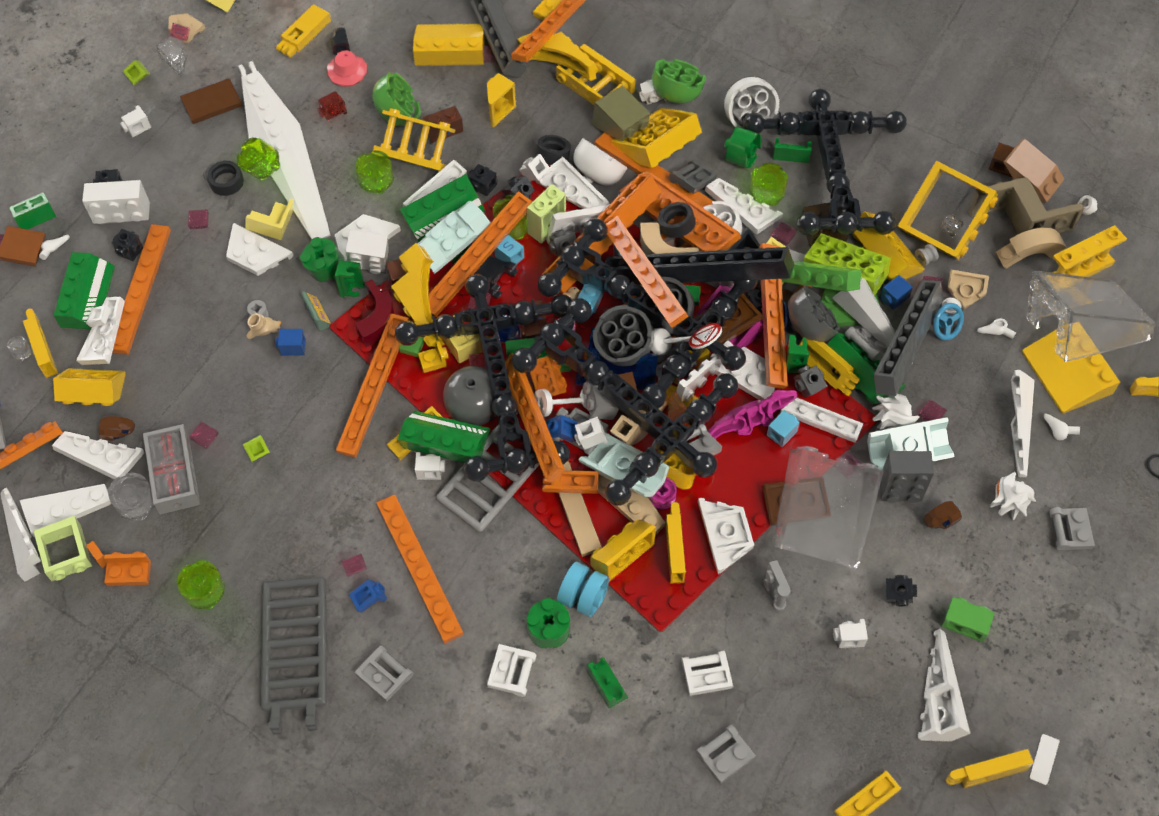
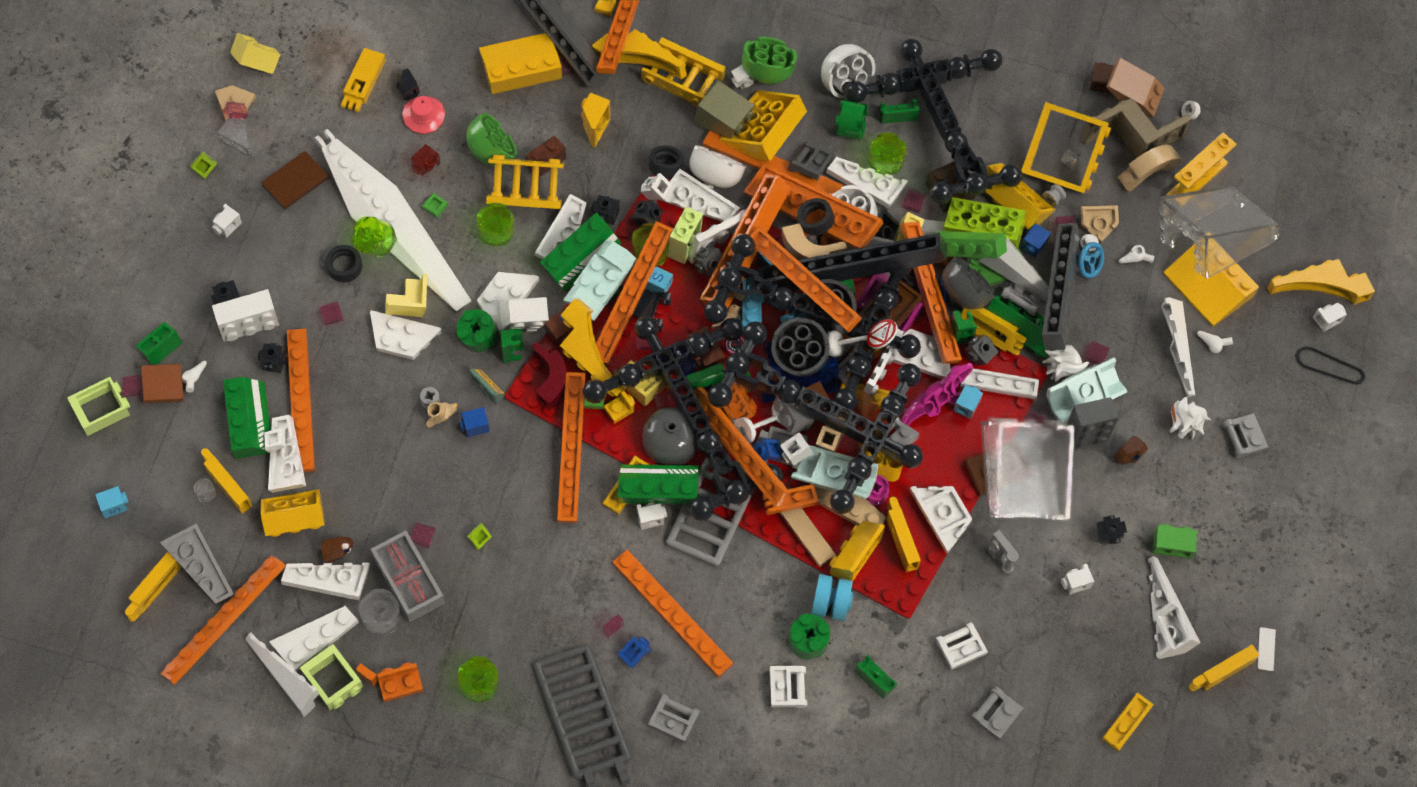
camera: 20 degrees left, 5 degrees up
(328, 147) = (435, 205): none -> bright green tile

